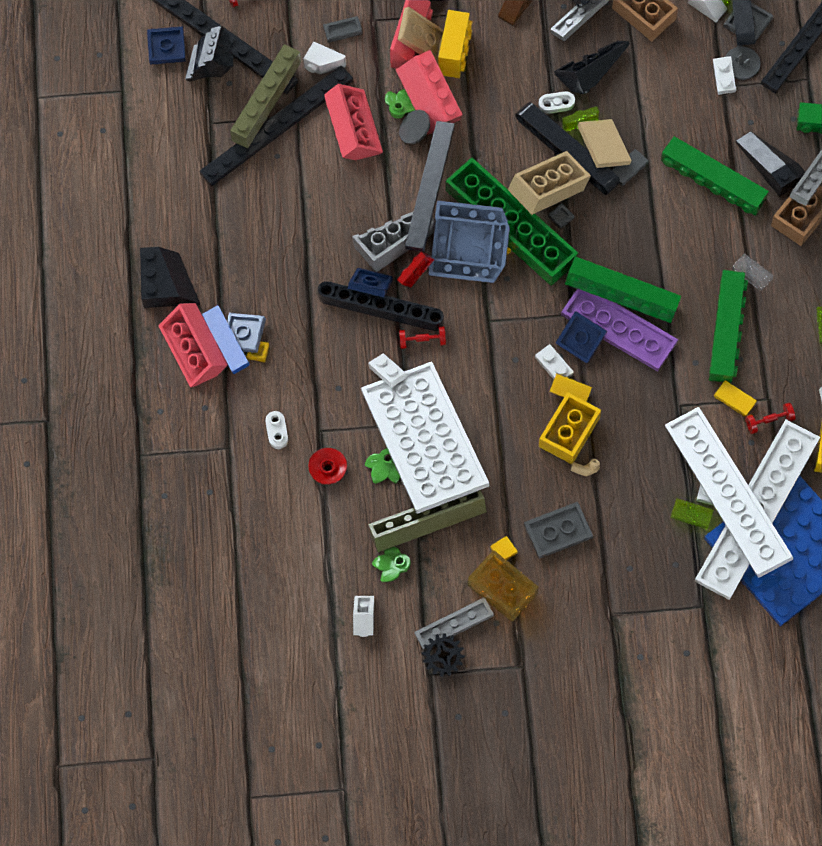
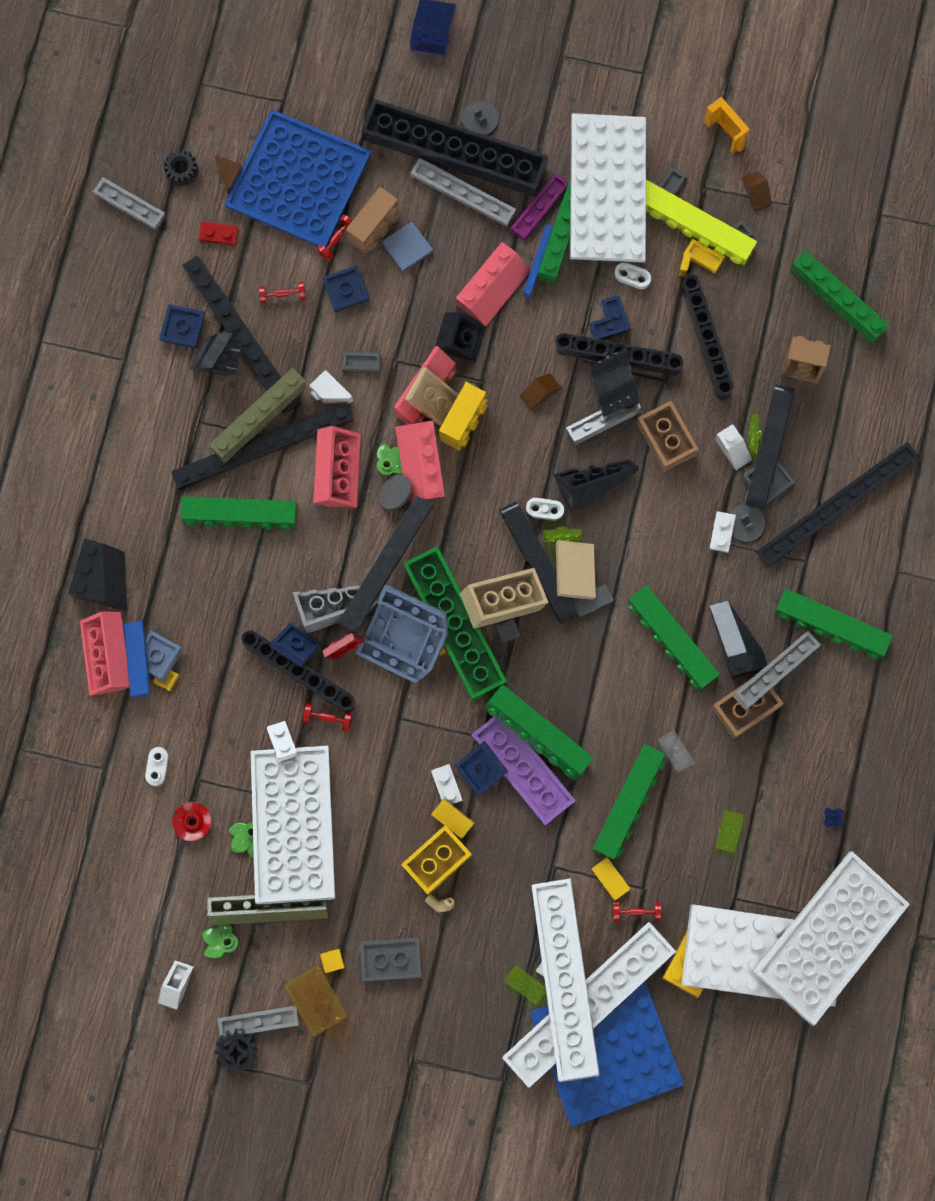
camera: 20 degrees right, 10 degrees up
(275, 186) = (238, 512): none -> green brick

